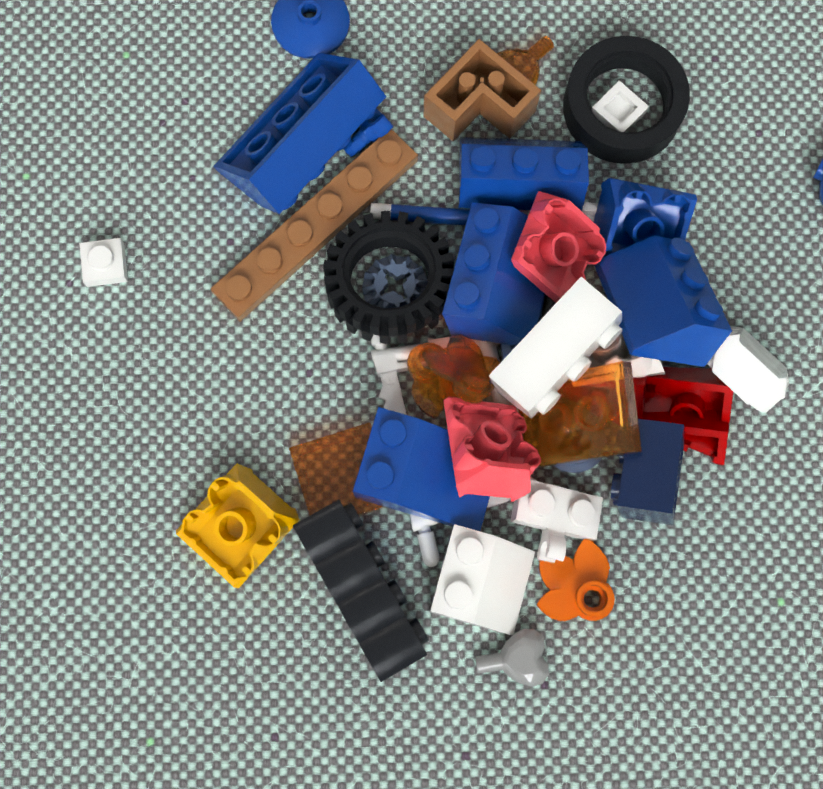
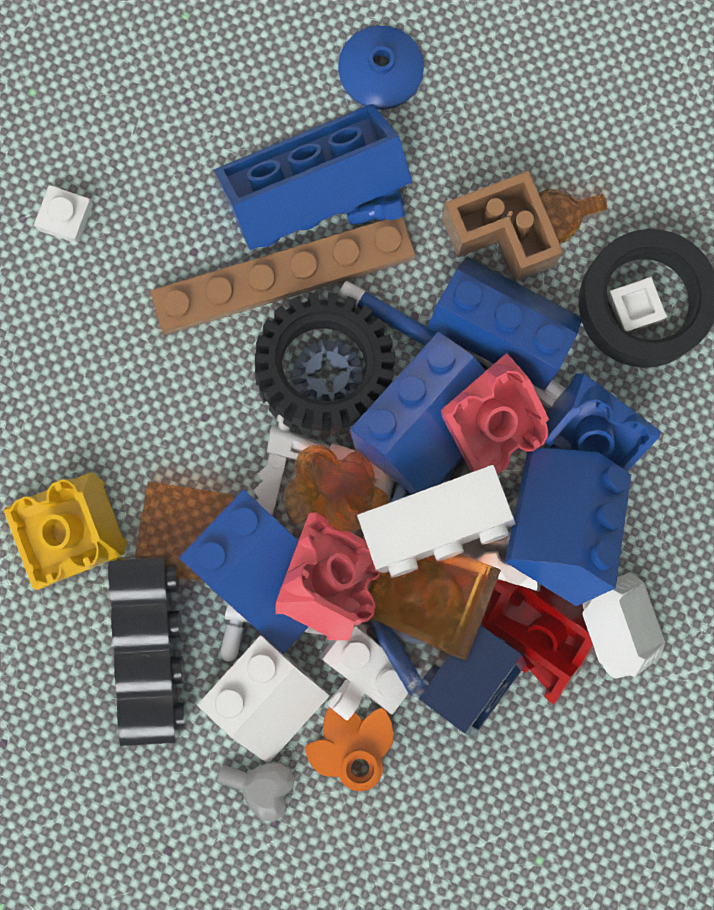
camera: 25 degrees right, 5 degrees up
(583, 480) = (403, 654): none -> blue piece

